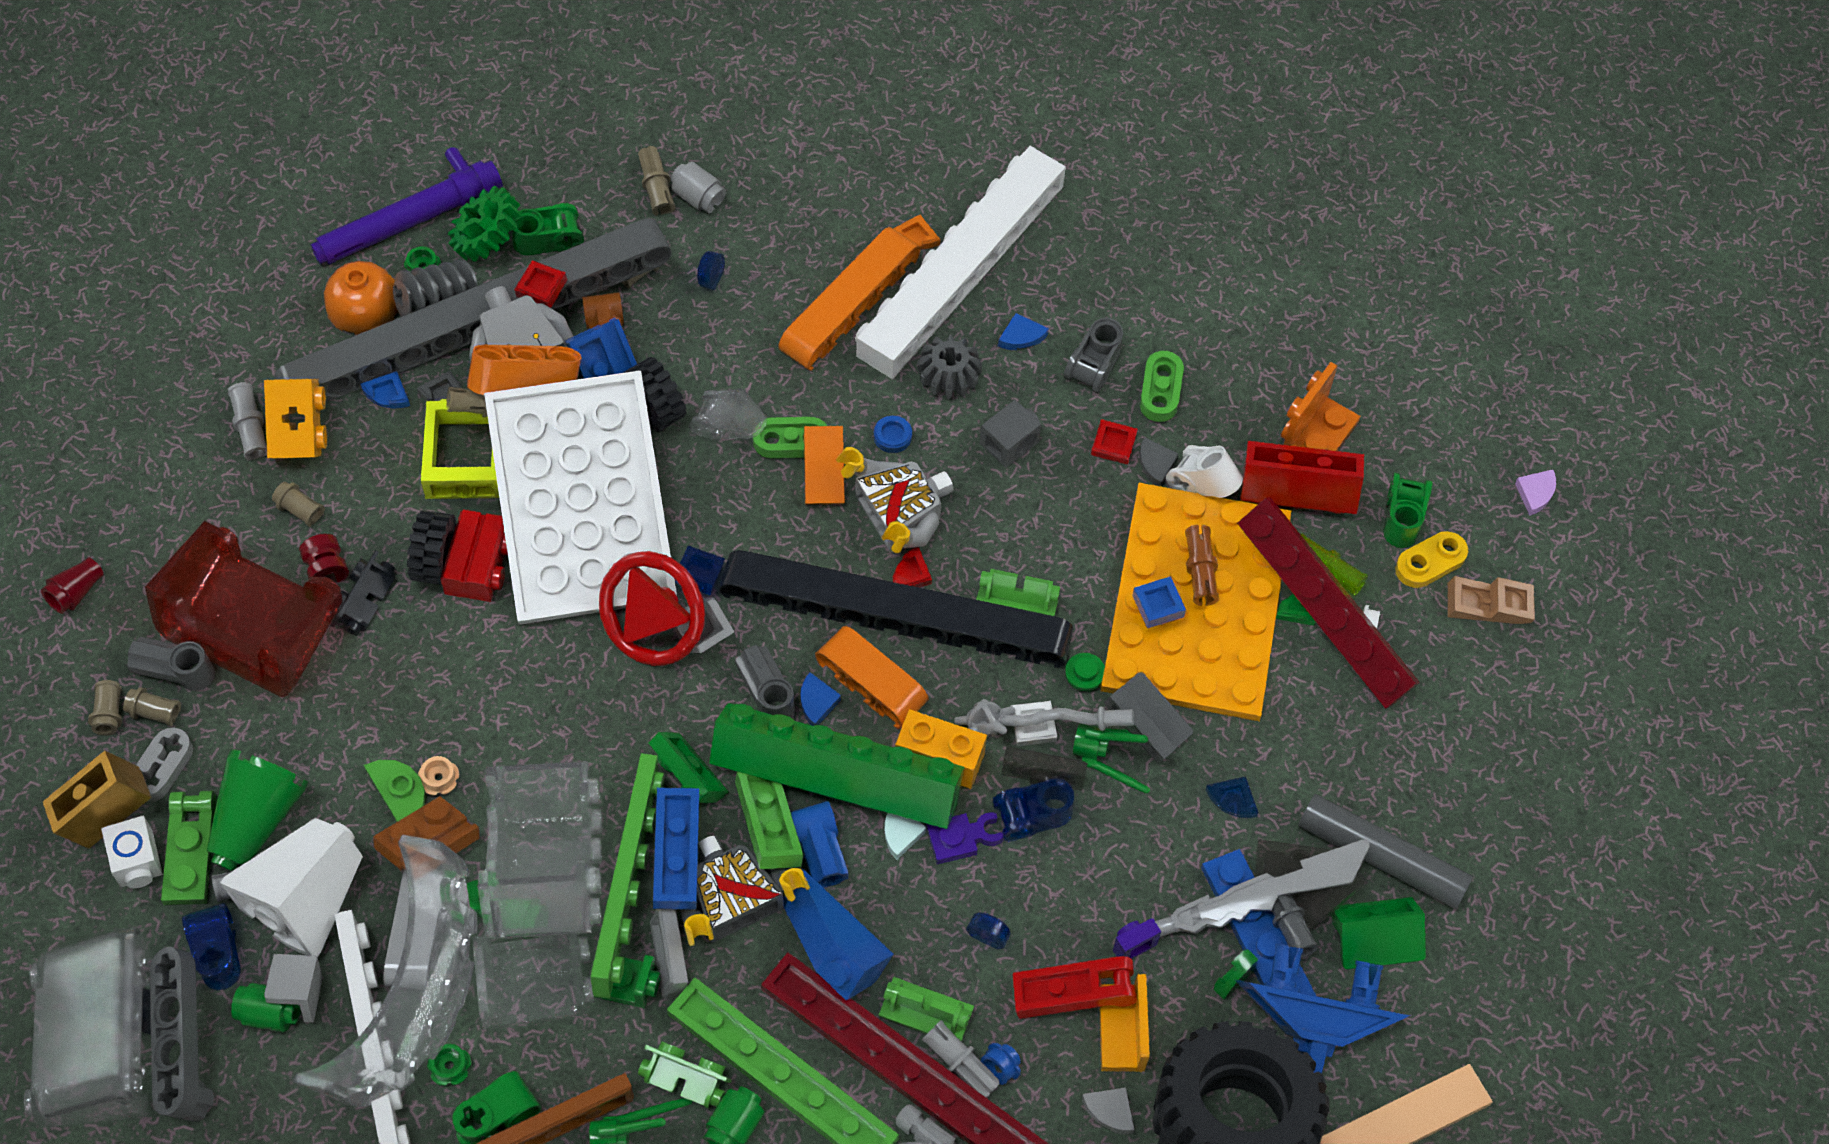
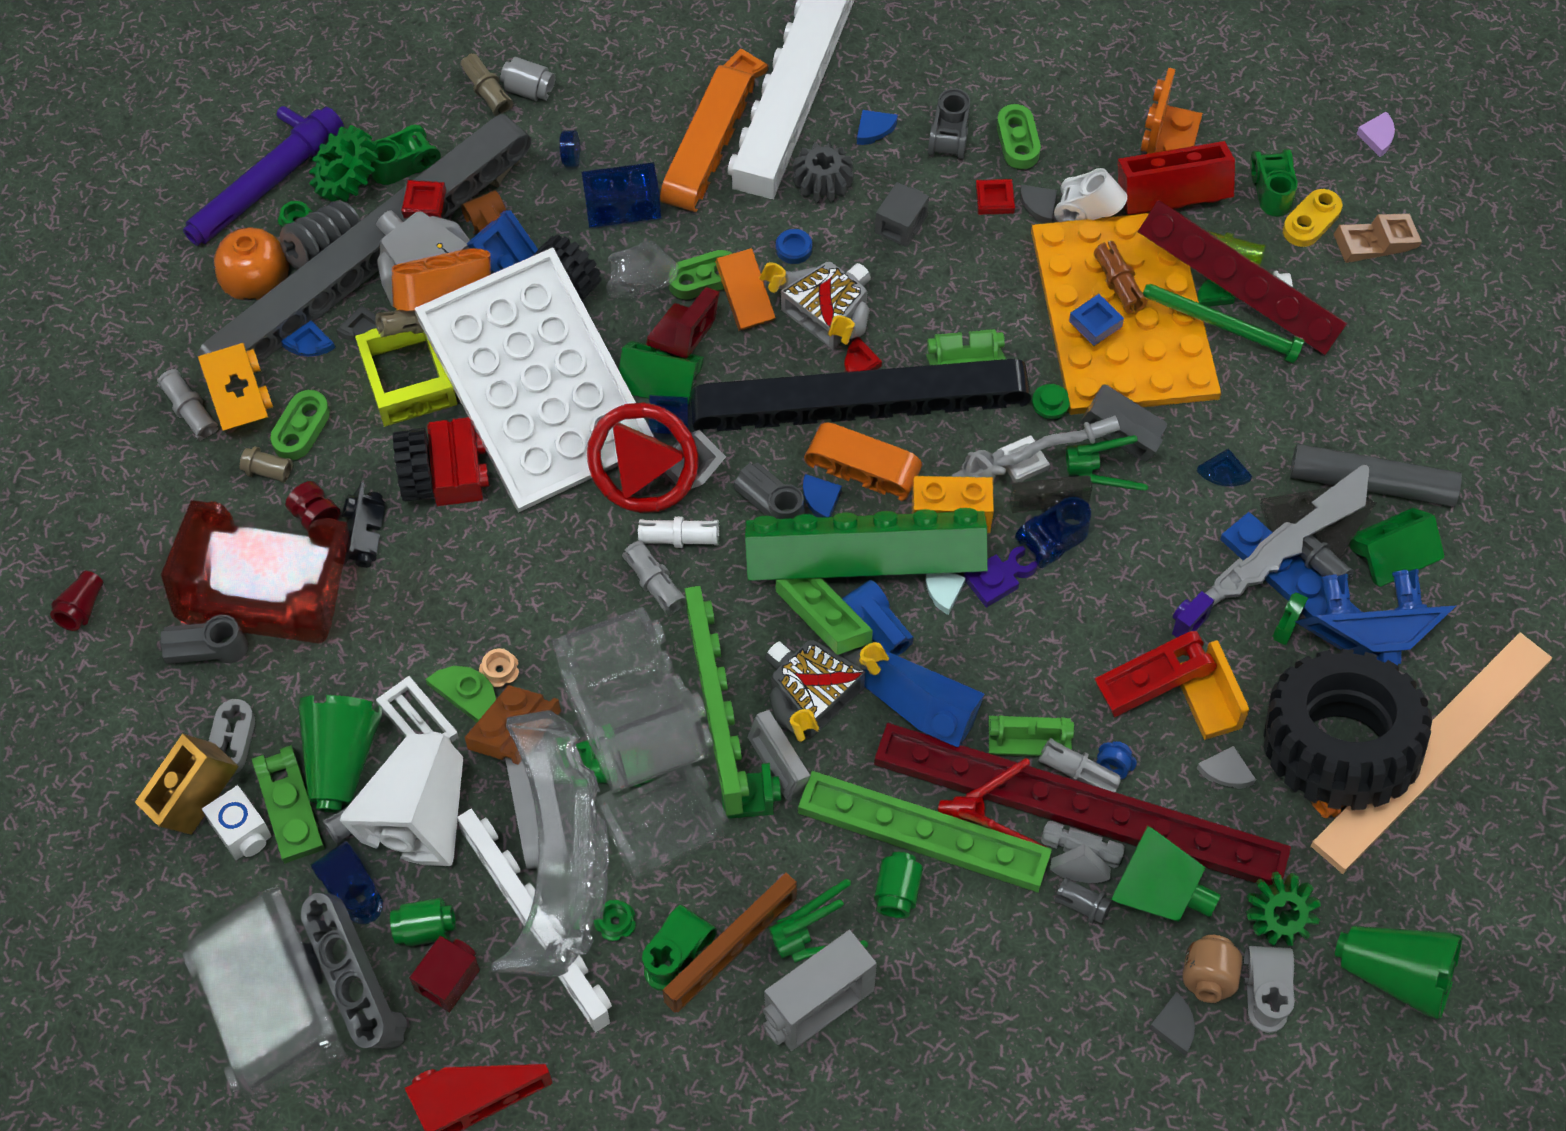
camera: 15 degrees left, 0 degrees up
(105, 714) = (159, 710): dark tan pin -> none
(151, 706) = (194, 688): dark tan pin -> none
(267, 1063) = (445, 972): none -> dark red brick
(295, 981) = (442, 890): light grey panel -> none
(332, 770) = (396, 693): none -> white tile
(341, 472) = (297, 426): none -> bright green plate
(621, 731) = (654, 577): none -> light grey pin
(663, 693) = (678, 532): none -> white pin
(676, 848) = (753, 660): blue plate -> none
(681, 760) = (717, 584): green plate -> none
(701, 1079) = (820, 855): hinge -> none
(707, 521) = (657, 372): none -> green panel
(739, 333) = (621, 194): none -> clear blue brick
(750, 484) = (685, 326): none -> dark red panel
(837, 1067) = (972, 807): none -> red plant
(988, 930) = (1058, 648): clear blue tile -> none
(1292, 643) = (1290, 348): none -> green bar

